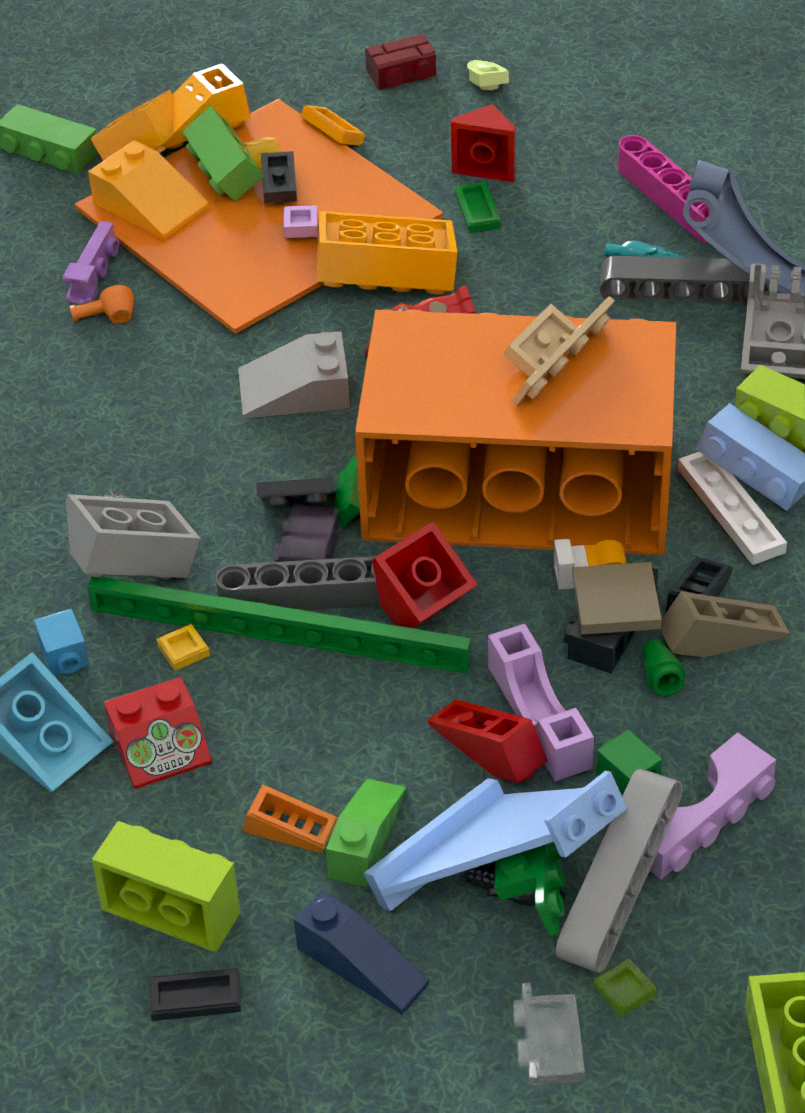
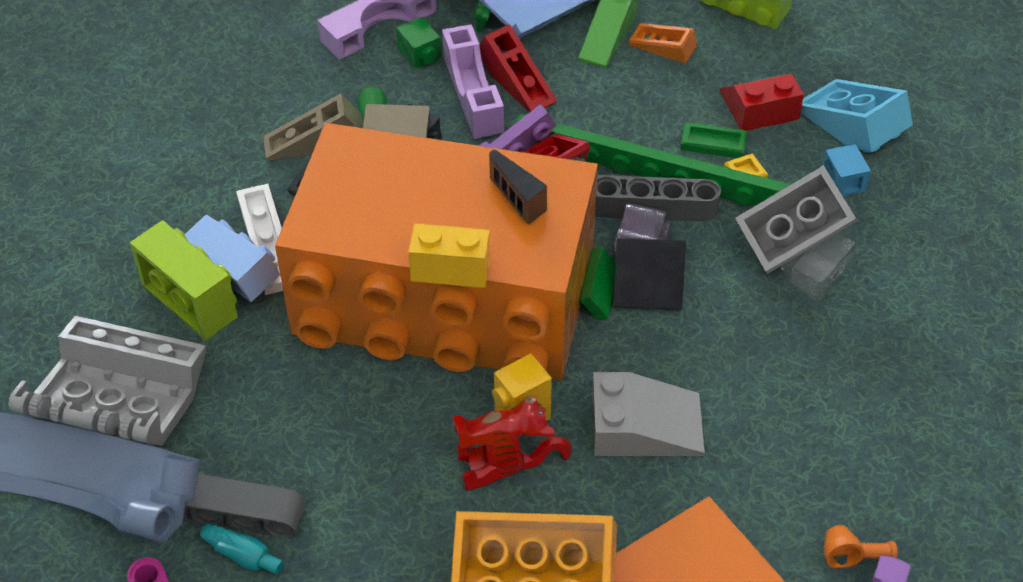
camera: 175 degrees left, 5 degrees up
(223, 683) = (713, 140): none -> green tile
(436, 373) = (519, 187): none -> black slope
(468, 609) = (526, 132): none -> medium lavender plate
(492, 299) = (449, 255): none -> yellow brick
(546, 343) = (399, 203): tan bracket -> none

